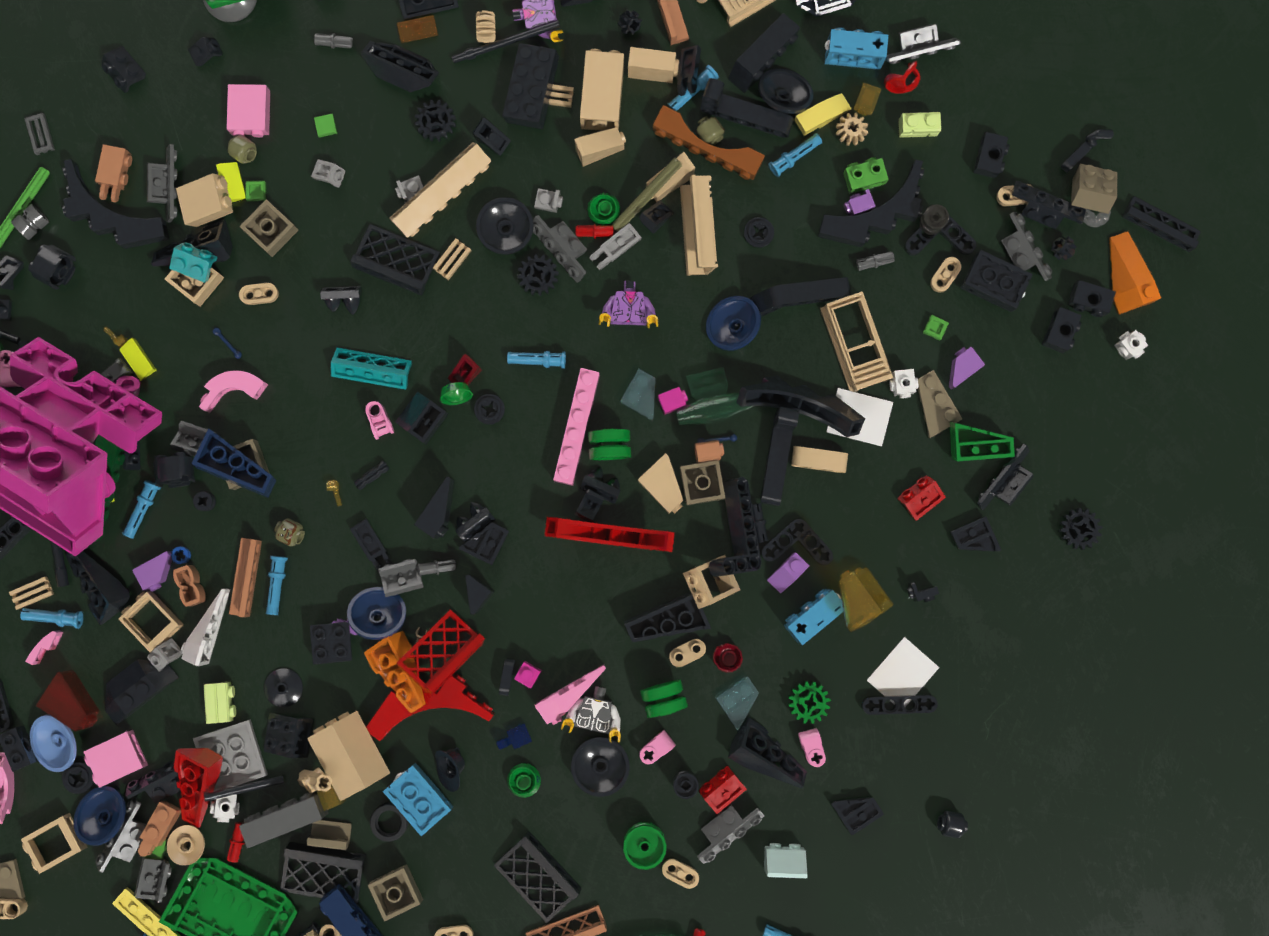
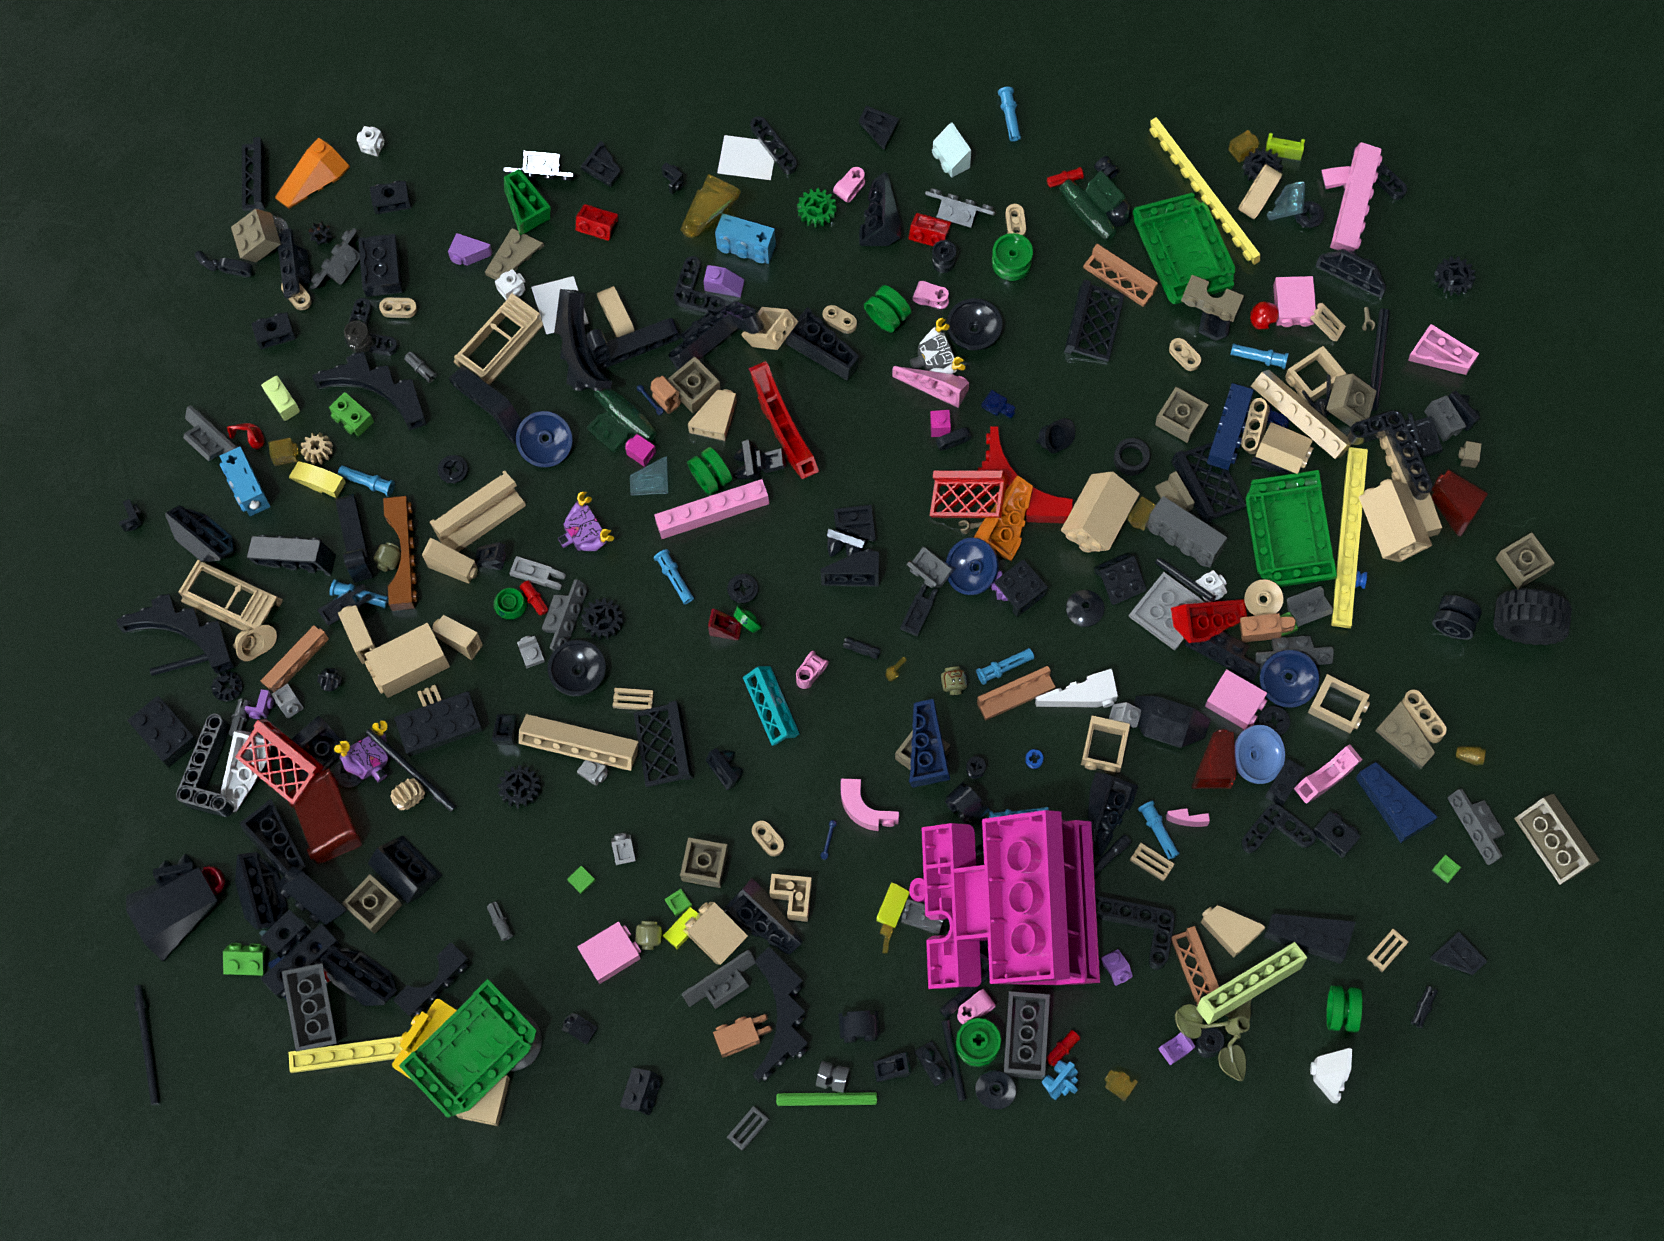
camera: 115 degrees left, 15 degrees down
(154, 572) = (1062, 769): medium lavender slope -> none
(188, 438) = (930, 806): dark grey bracket -> none
(188, 581) = (1050, 732): nougat brick -> none
(192, 261) = (775, 897): teal bracket -> none
(219, 702) = (1132, 647): yellowish green brick -> none
(235, 844) = (1232, 563): red axle -> none
(315, 780) = (1138, 524): tan piece -> none
(399, 66) = (487, 842): black wedge -> none
(417, 29) = (444, 857): clear orange plate -> none
(418, 799) = (1097, 442): dark azure piece -> none
(421, 418) = (785, 634): black slope -> none
(436, 567) = (902, 547): dark grey axle -> none
(477, 593) = (903, 496): black slope -> none
(524, 780) = (1026, 378): green hat -> none
(647, 194) = (477, 568): olive axle -> none
(727, 657) = (822, 285): dark red hair -> none
(738, 701) = (851, 260): clear light blue wing -> none
(785, 91) = (316, 514): black dish -> none
(859, 204) = (378, 404): medium lavender brick -> none
(935, 327) = (447, 291): bright green tile -> none
(952, 824) = (840, 55): black head -> none
(1083, 521) = (553, 91): black gear -> none
(1102, 296) = (350, 180): black brick -> none

